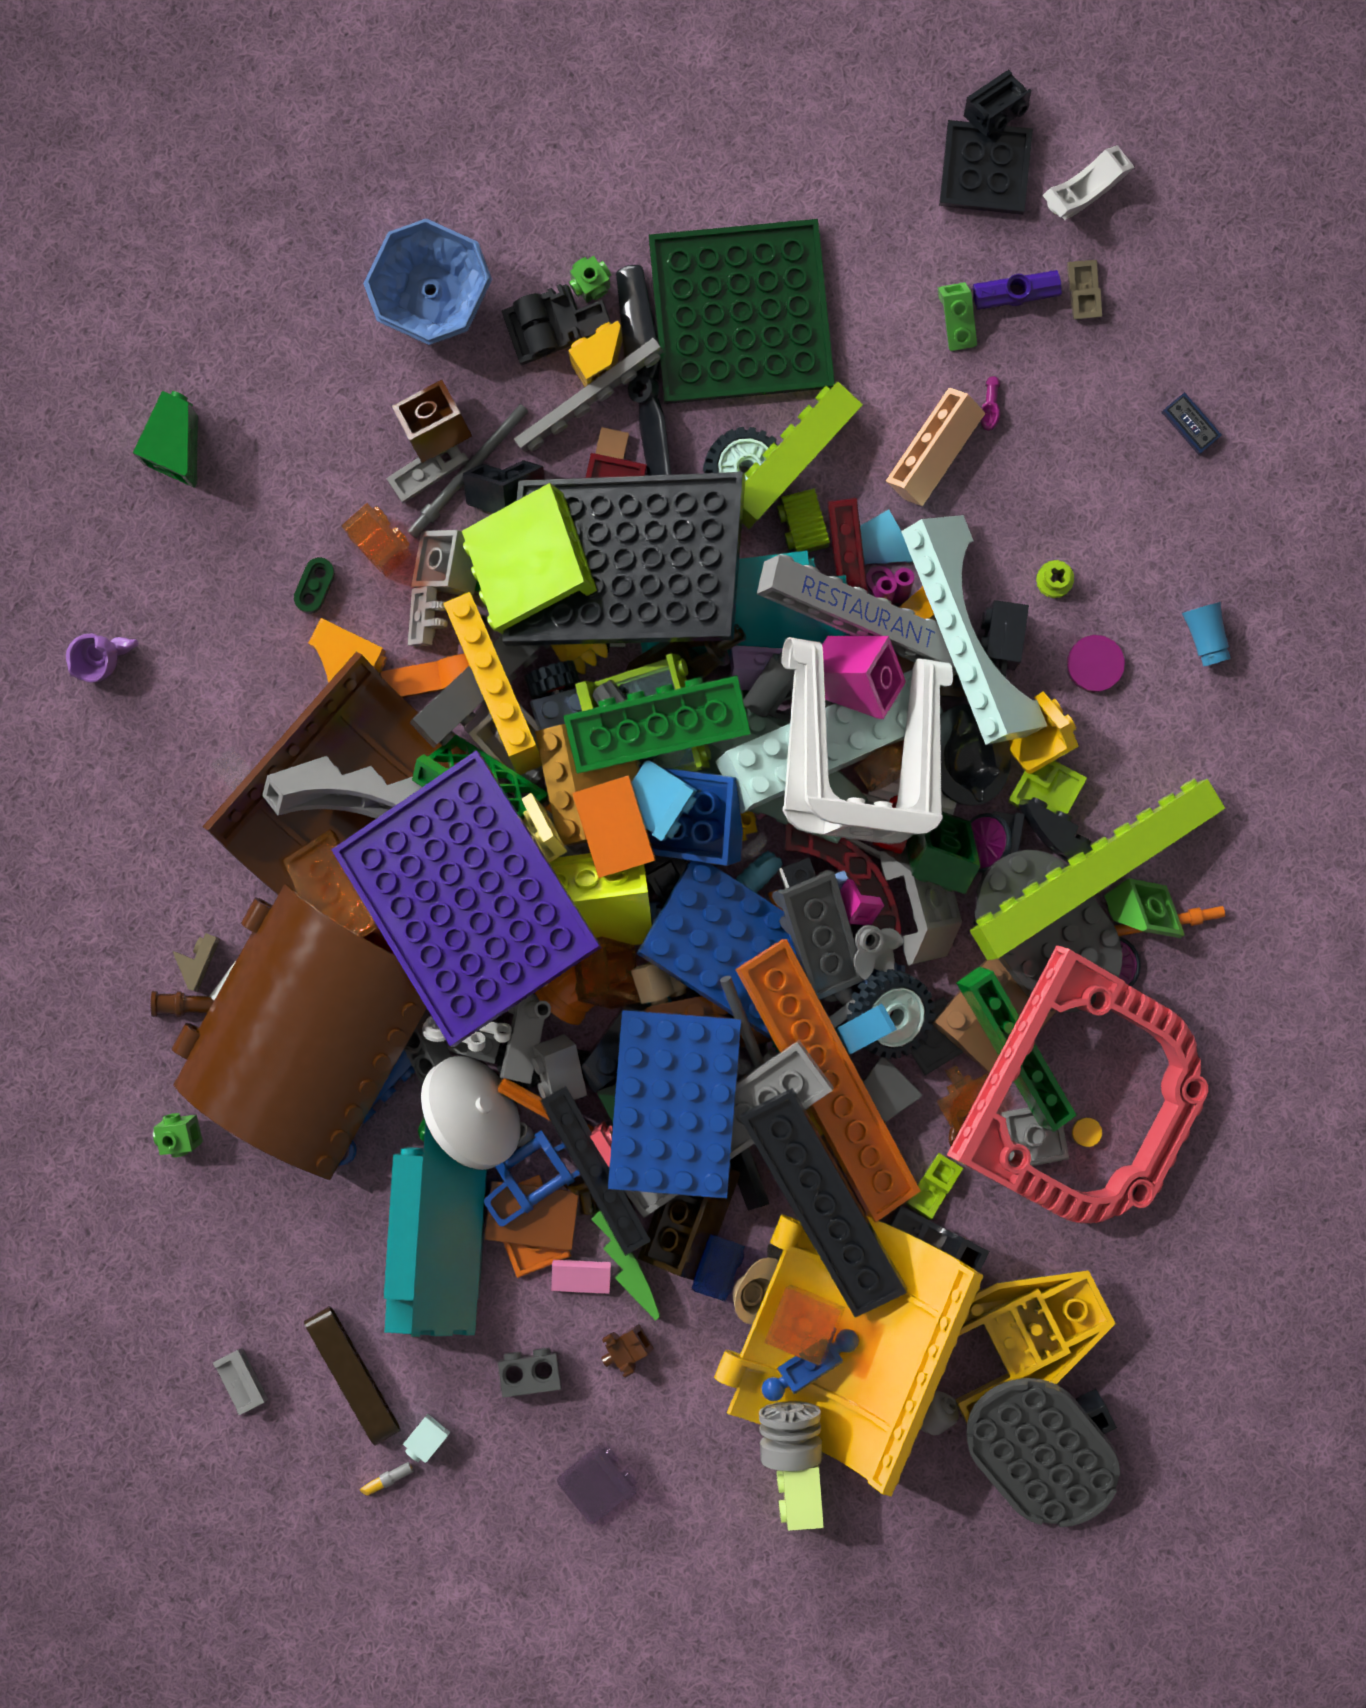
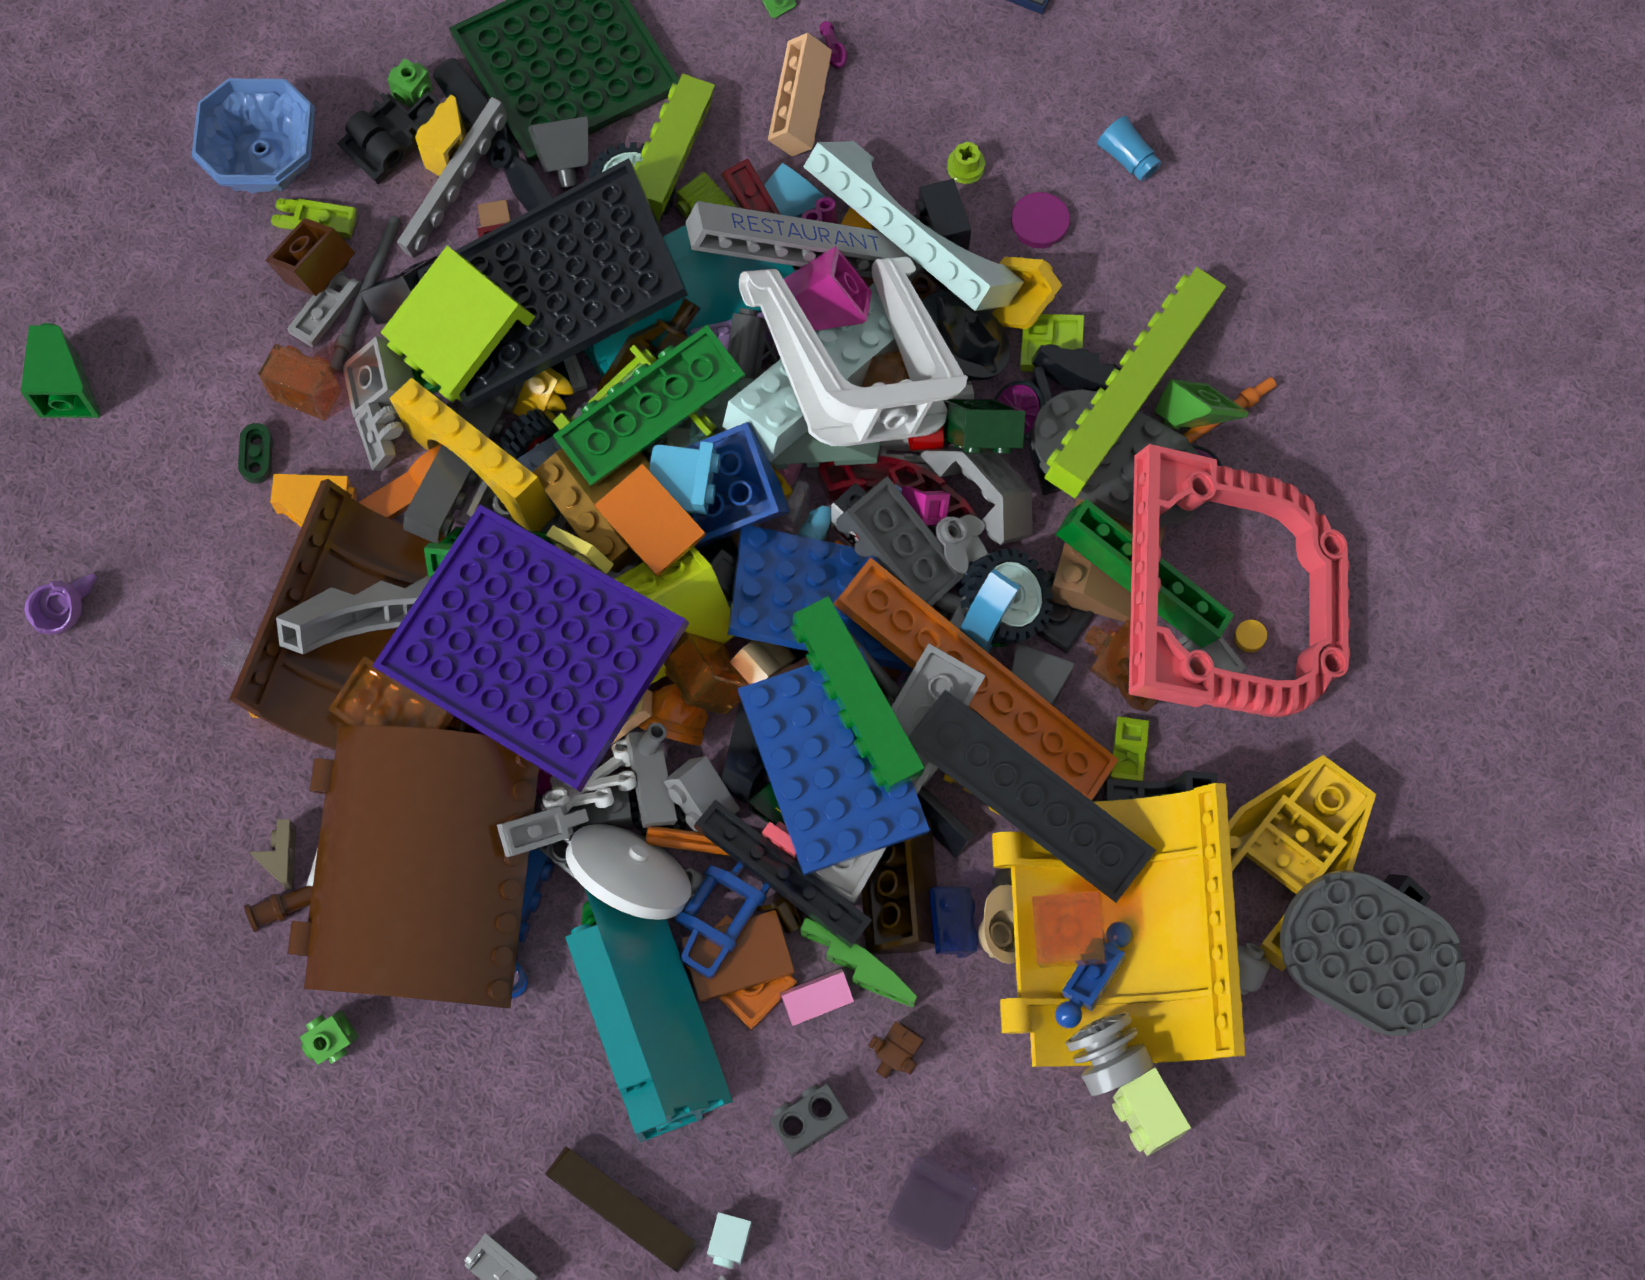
camera: 25 degrees left, 15 degrees down
(411, 1052) = (539, 829): none -> light grey hinge
(456, 377) = (332, 215): none -> lime hinge
(699, 407) = (562, 147): none -> dark grey torso
(715, 1064) = (857, 695): none -> green brick

